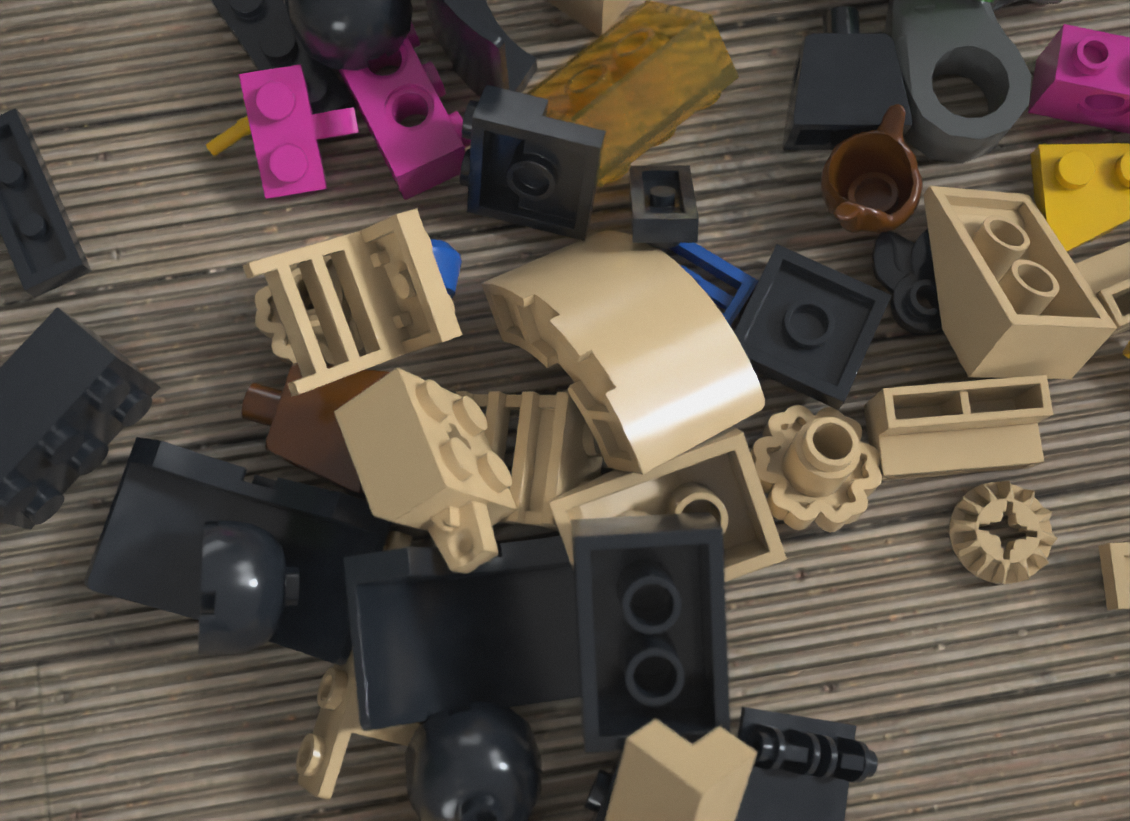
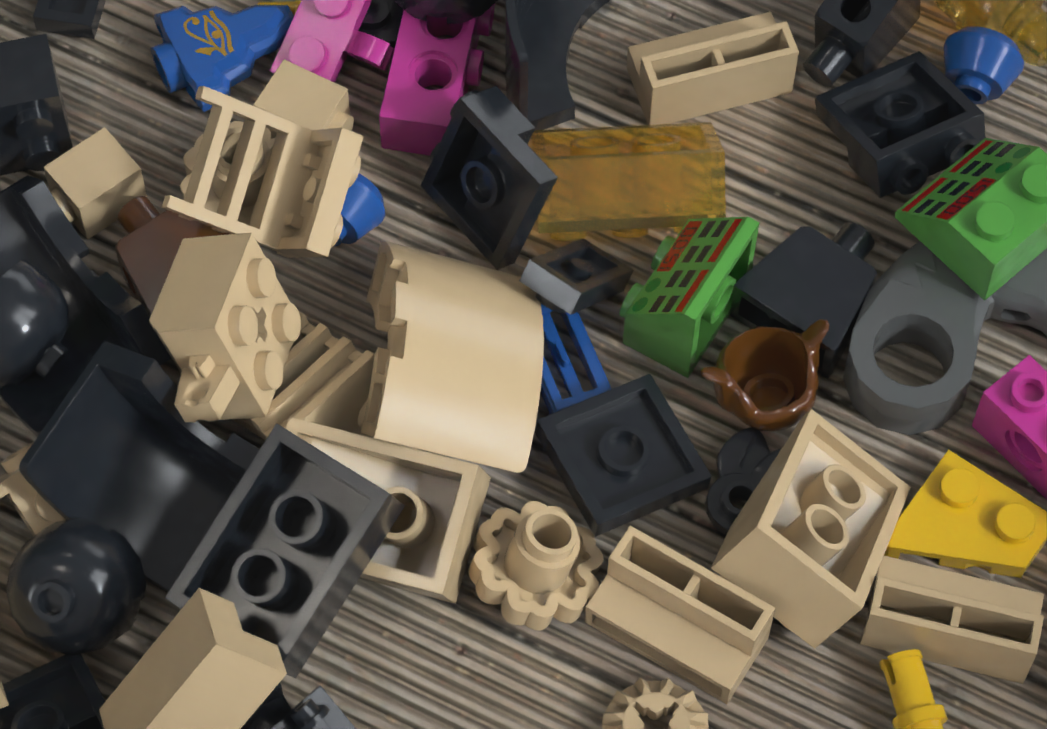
camera: 35 degrees right, 15 degrees down
(197, 401) = (94, 182): none -> tan brick
(203, 209) = (215, 45): none -> blue rock
(322, 209) = (305, 99): none -> tan brick
(760, 149) = (689, 291): none -> bright green slope

